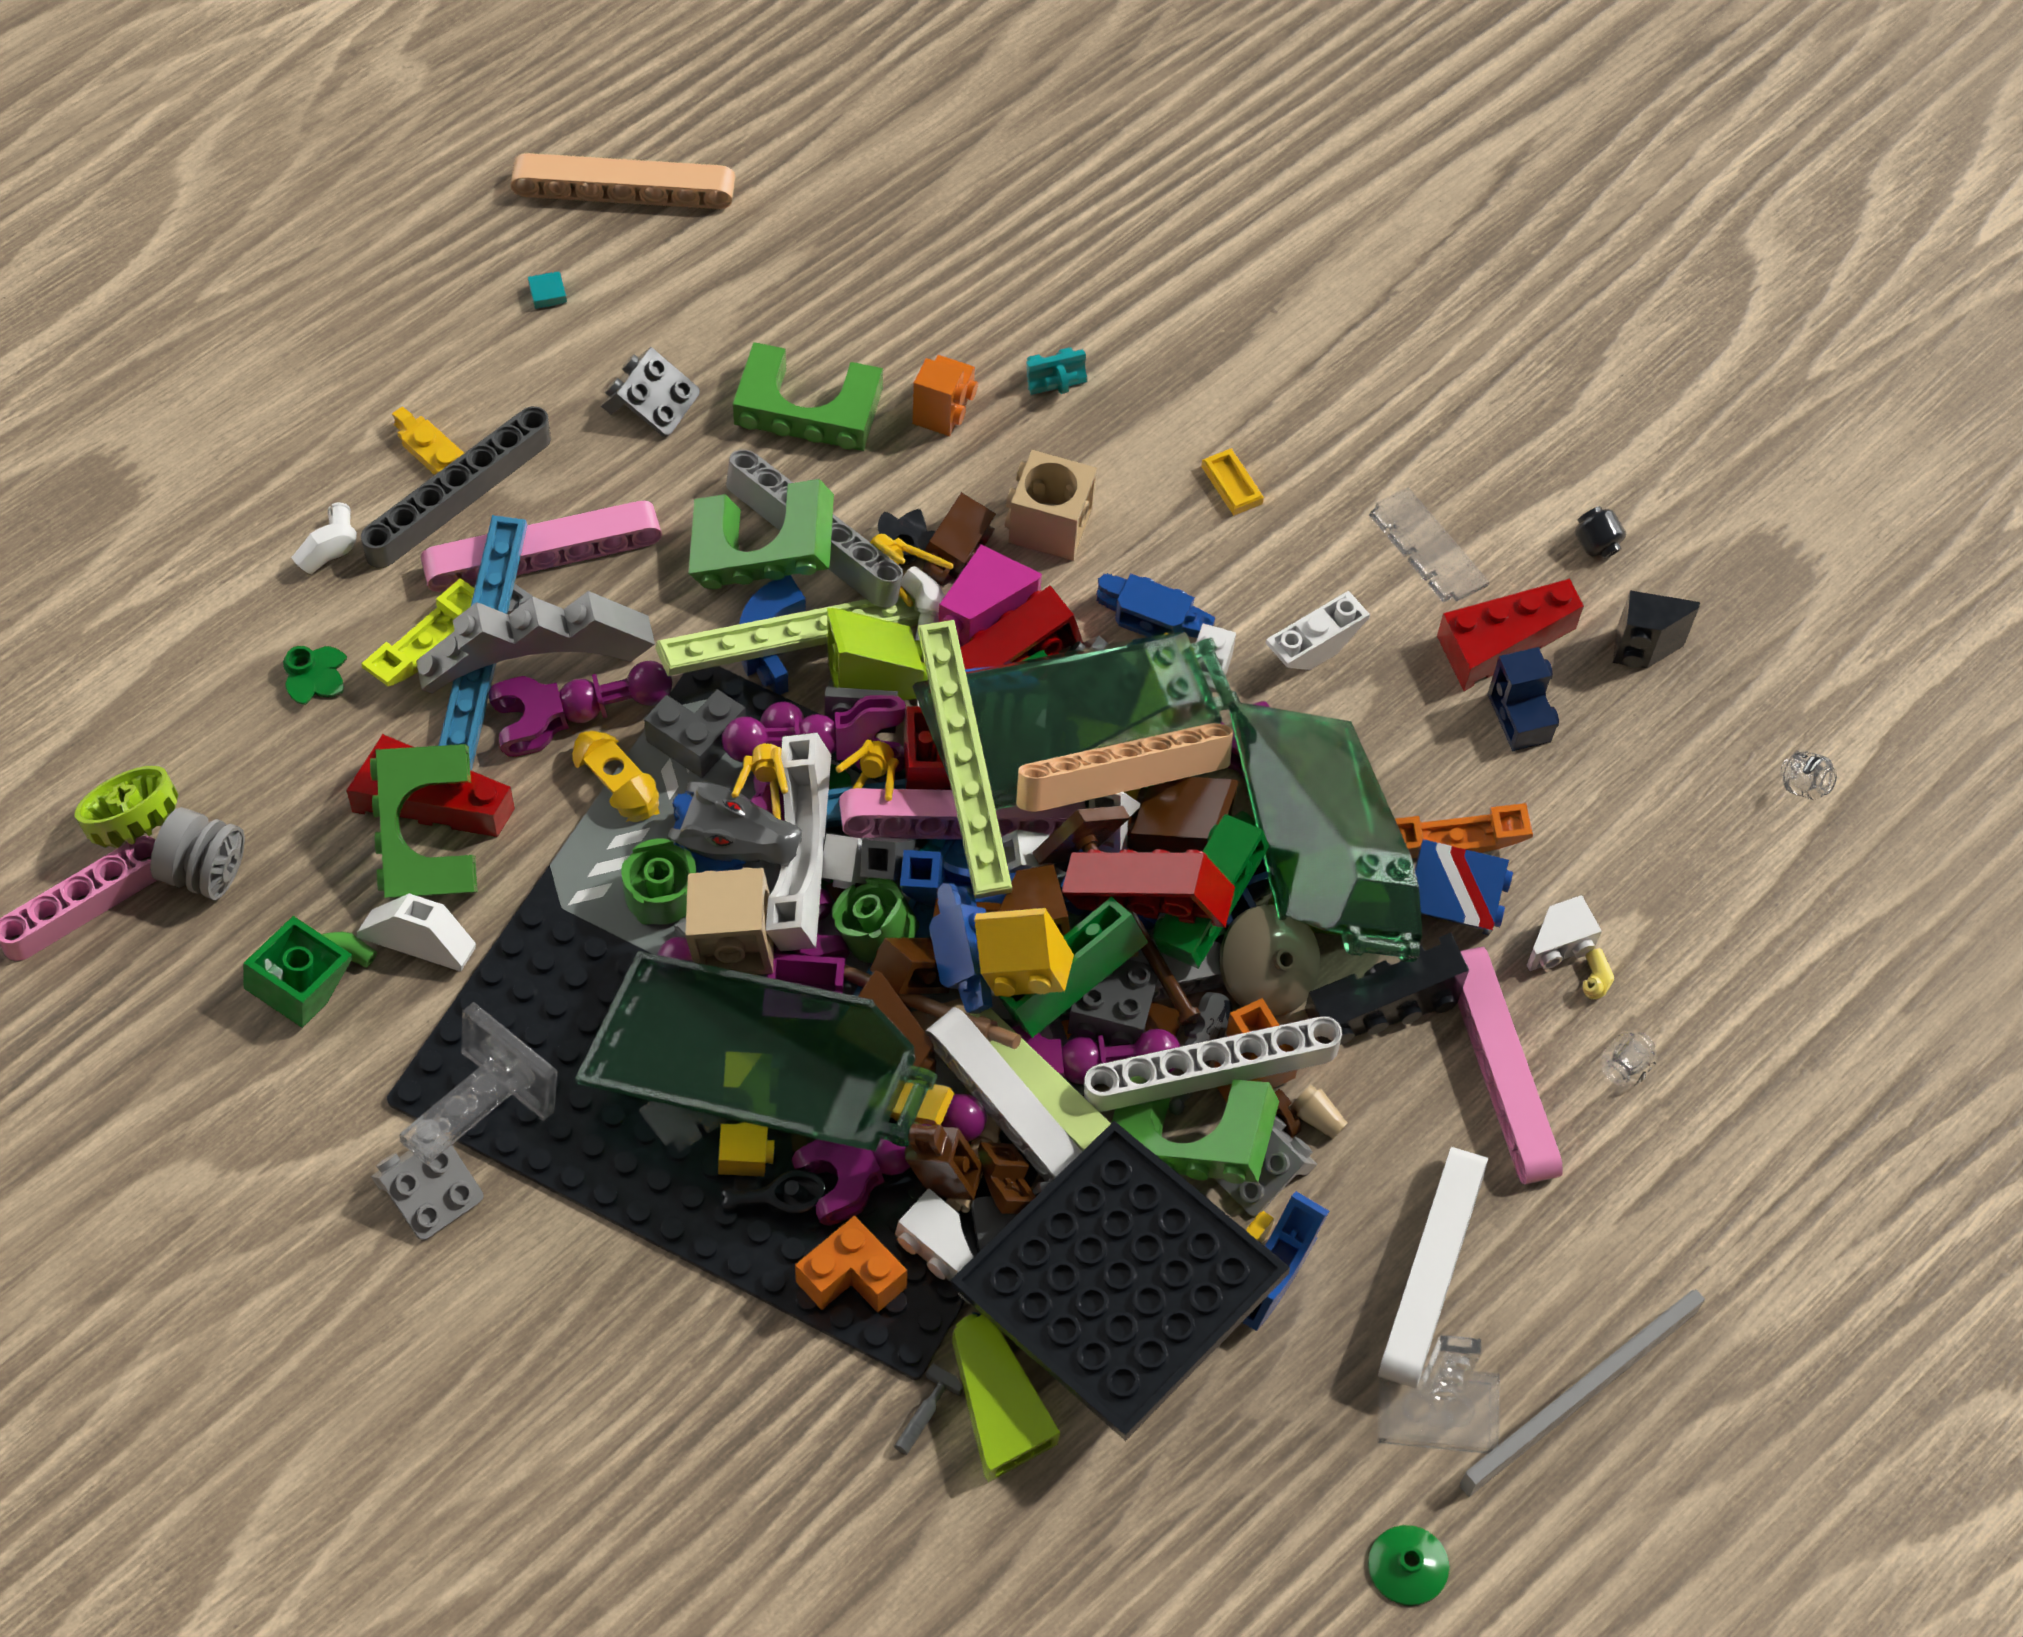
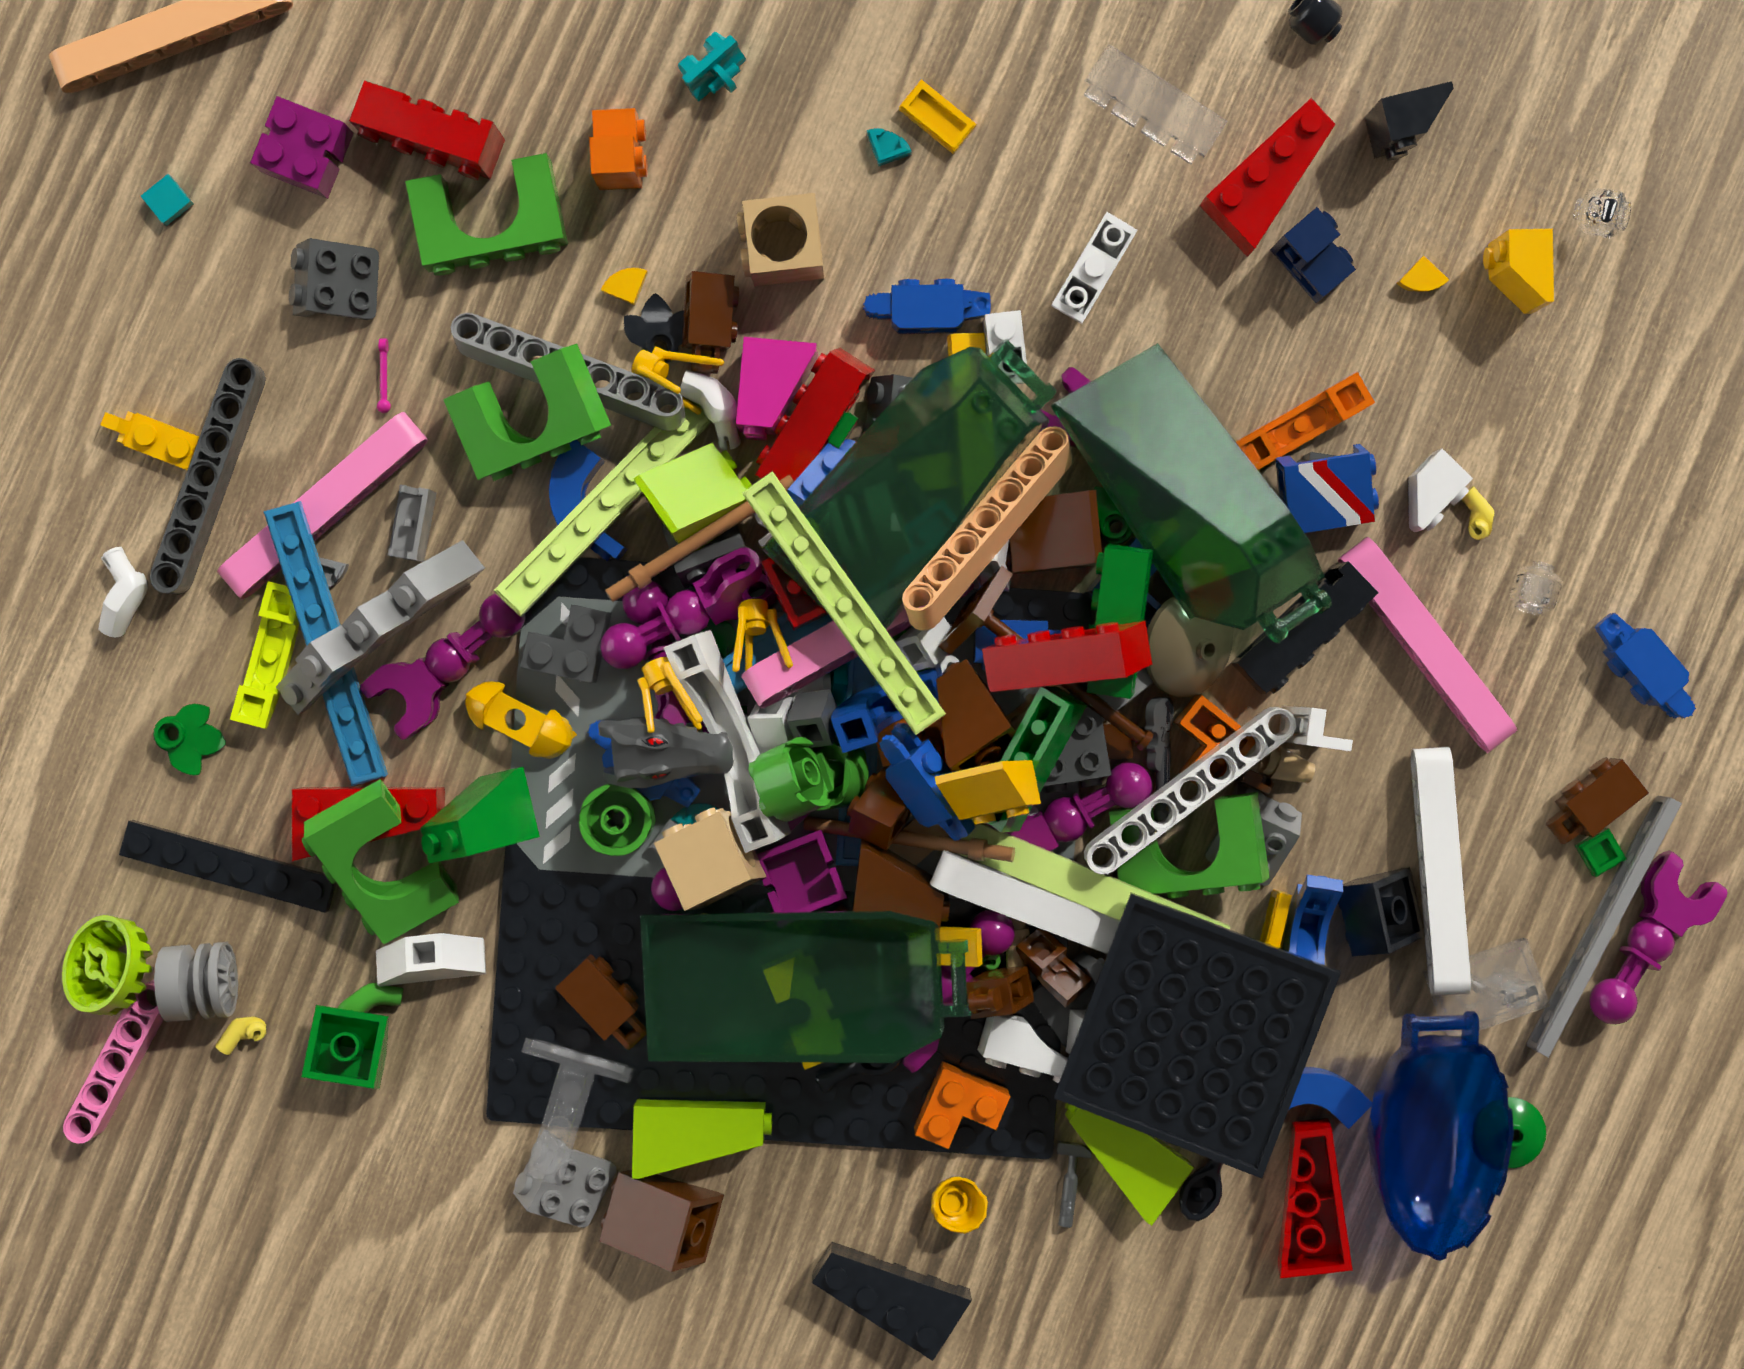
camera: 20 degrees left, 30 degrees up
(207, 924) = (241, 1029): none -> light yellow arm
(283, 788) = (227, 866): none -> black plate
(503, 1255) = (661, 1220): none -> reddish brown slope
(536, 826) = (483, 817): none -> green slope
(557, 1028) = (603, 1001): none -> reddish brown brick
(578, 1183) = (691, 1132): none -> lime slope
(621, 580) = (412, 523): none -> light grey hinge
(663, 459) = (383, 405): none -> dark pink hinge
(673, 293) = (299, 145): none -> magenta piece
(698, 1440) = (900, 1301): none -> black wedge
(794, 681) = (641, 575): none -> medium nougat bar
(795, 321) = (427, 131): none -> red wedge
(802, 1372) = (959, 1205): none -> yellow hair
(841, 888) = (791, 780): none -> bright green brick
(897, 494) = (625, 284): none -> yellow tile
(1060, 1470) = (1201, 1192): none -> black piece
(1163, 1543) = (1313, 1211): none -> red wedge
(1178, 486) = (887, 146): none -> teal tile
(1218, 1419) = (1332, 1093): none -> blue arch
(1328, 1492) = (1440, 1134): none -> clear blue windscreen
(1343, 1061) = (1310, 729): none -> white fence
(1358, 1281) = (1381, 913): none -> black slope
(1607, 1327) = (1600, 852): none -> green tile
(1620, 765) = (1423, 277): none -> yellow tile
(1620, 1270) = (1596, 800): none -> reddish brown brick
(1632, 1423) = (1652, 940): none -> magenta piece
(1713, 779) = (1522, 267): none -> yellow slope
(1715, 1169) = (1647, 666): none -> blue hinge

